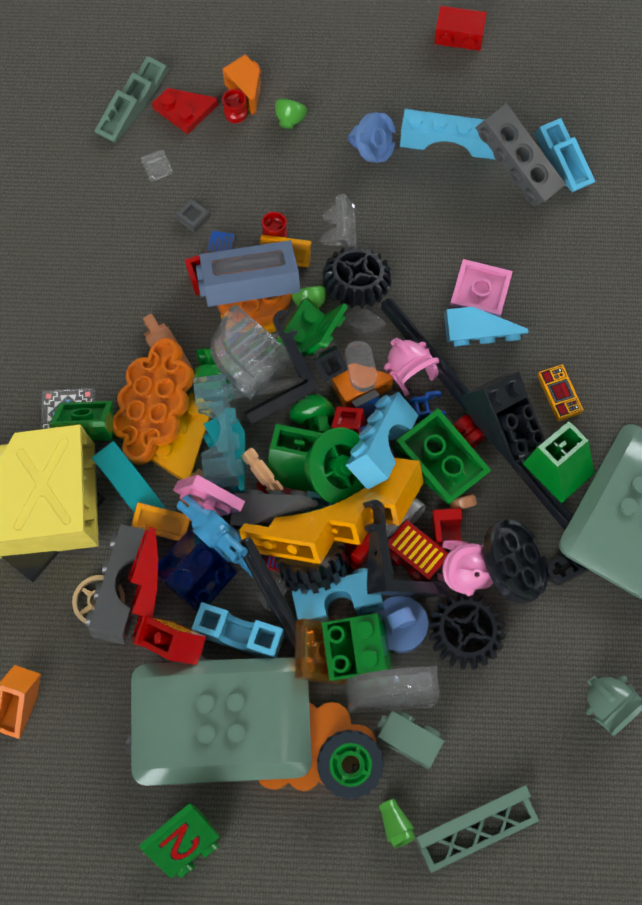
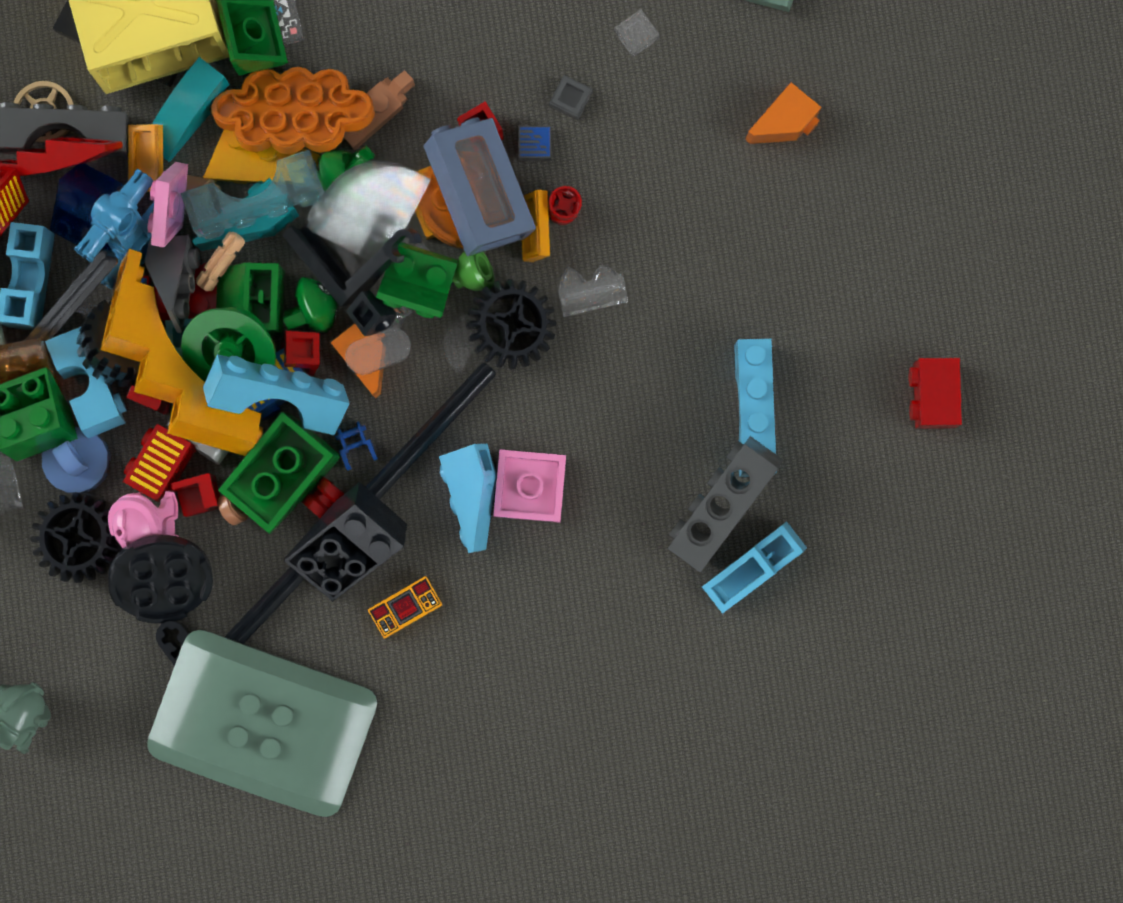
camera: 80 degrees right, 15 degrees up
(184, 108) = (733, 47): red wing -> none
(235, 106) = (747, 106): red wheel -> none
(289, 112) = (748, 187): bright green brick -> none
(367, 403) = (336, 368): dark grey tile -> none
(373, 137) = (723, 307): medium blue tile -> none
(380, 565) = (96, 421): black hinge -> none
(407, 359) = (396, 411): bright pink helmet -> none
(562, 462) = (300, 619): green slope -> none

